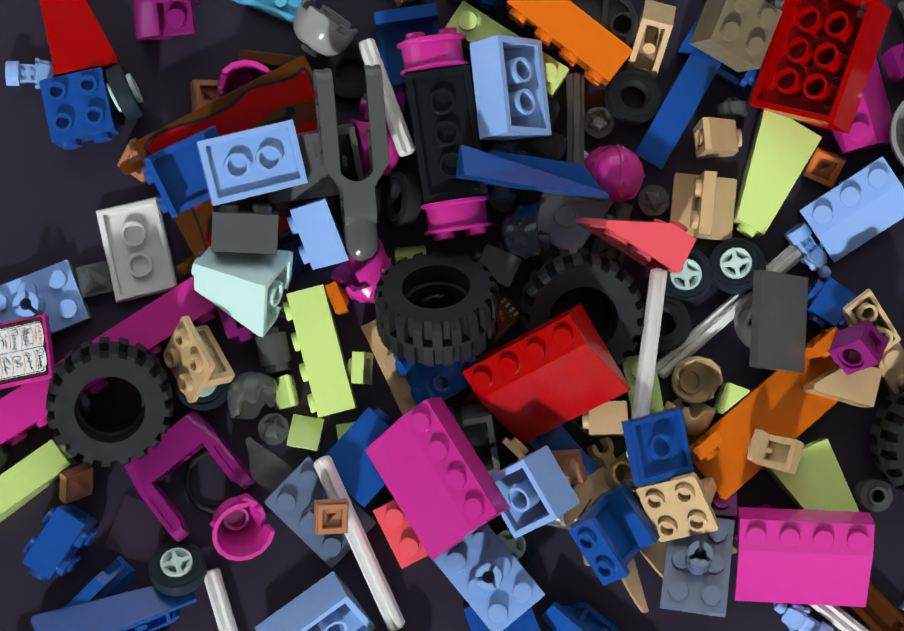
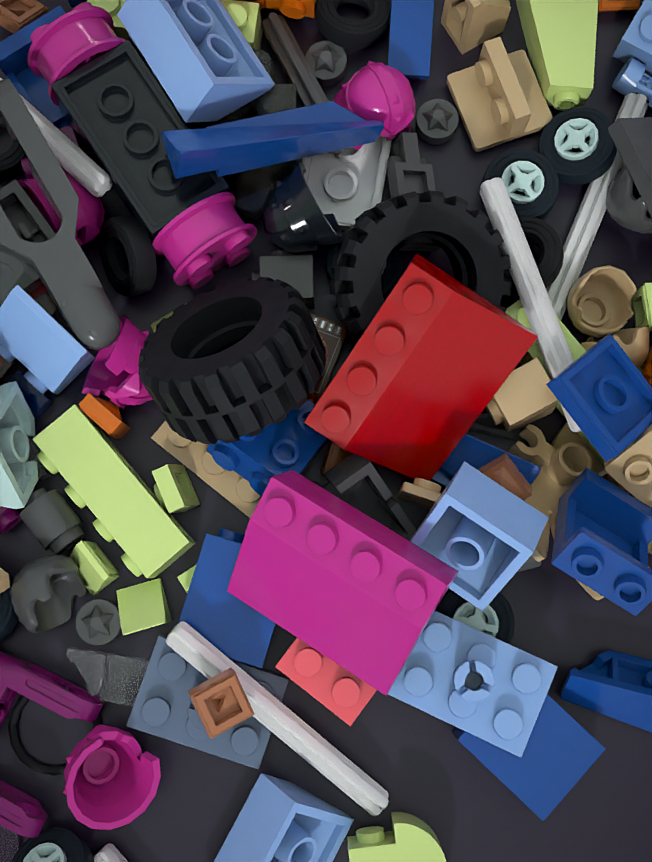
camera: 25 degrees left, 5 degrees down
(646, 242) = (448, 155): coral slope -> none

